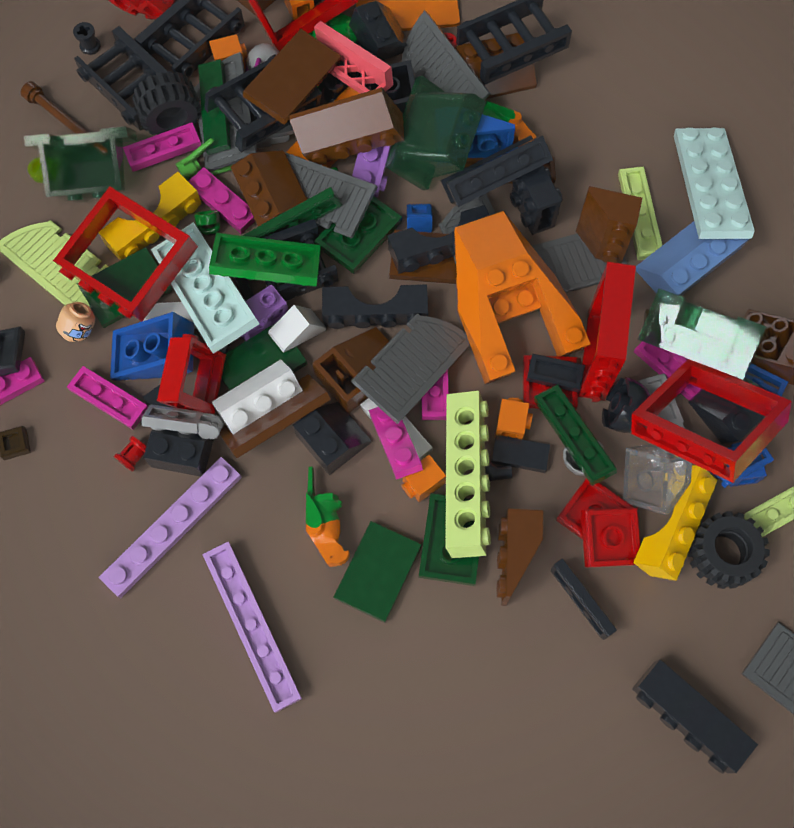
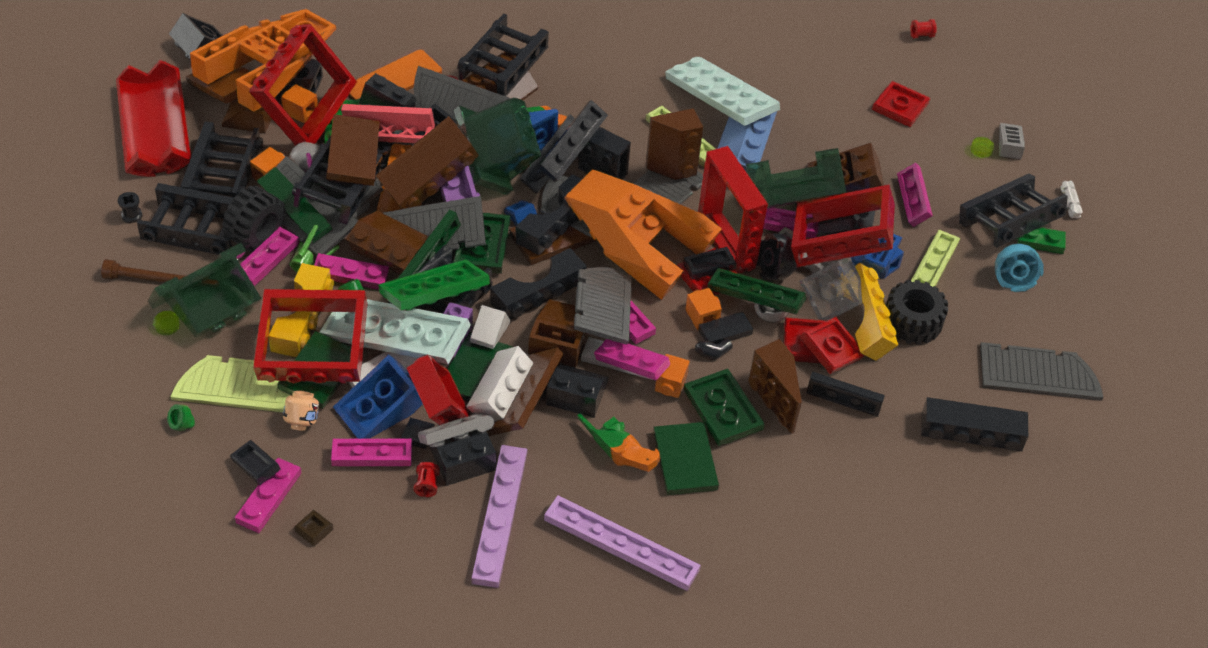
camera: 40 degrees left, 20 degrees down
(470, 540) = (706, 356): yellowish green brick -> none

